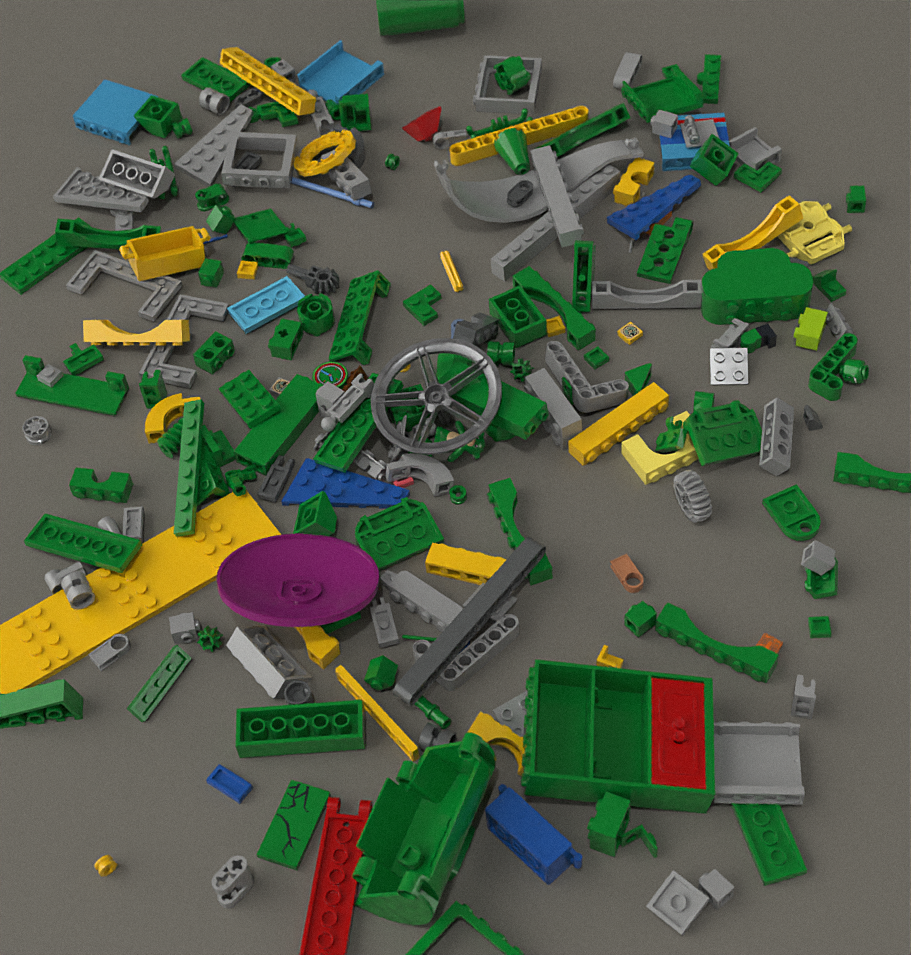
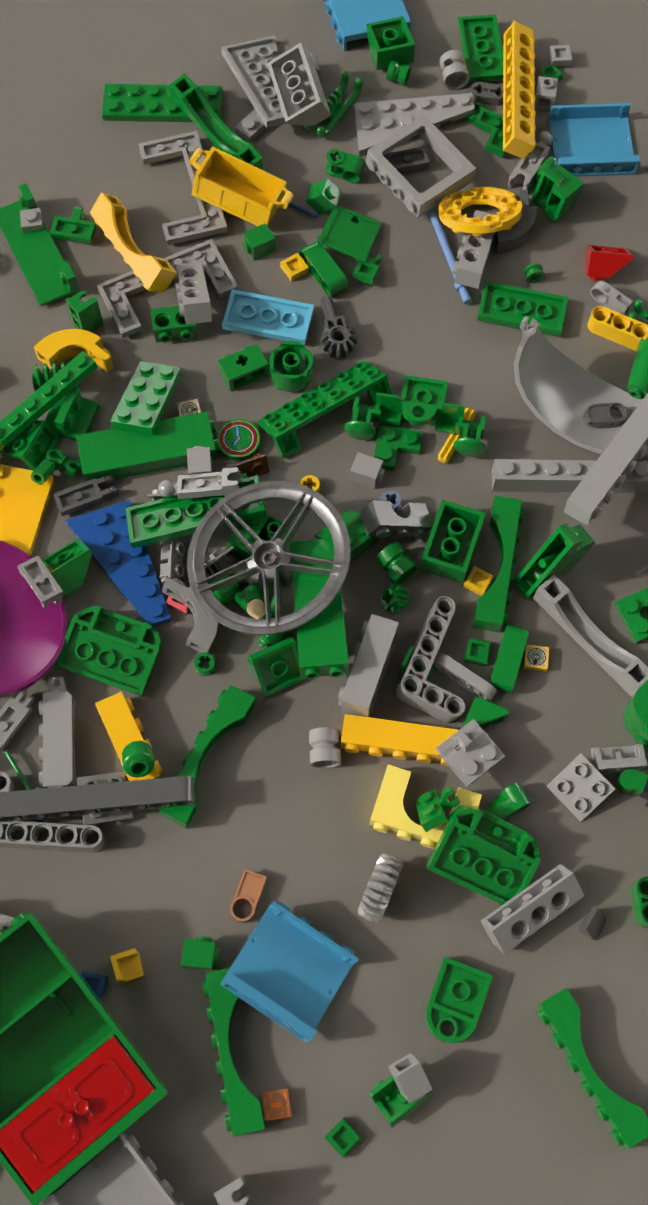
camera: 40 degrees right, 15 degrees up
(213, 322) = (192, 293): none -> light grey brick
(266, 49) = (560, 55): none -> light grey plate
(315, 530) = (41, 582): none -> light grey hinge
(406, 184) = (510, 304): none -> green plate
(413, 268) = (420, 404): none -> green piece
(425, 327) = (367, 470): none -> light grey brick
(488, 556) = (138, 759): none -> green head
(501, 455) = (276, 666): none -> green bracket
(578, 469) = (324, 744): none -> light grey wheel
(617, 344) = (509, 658): none -> green beam
(617, 371) = (464, 677): none -> light grey beam
(656, 397) = (470, 753): none -> light grey hinge
(695, 577) = (289, 971): none -> dark azure panel

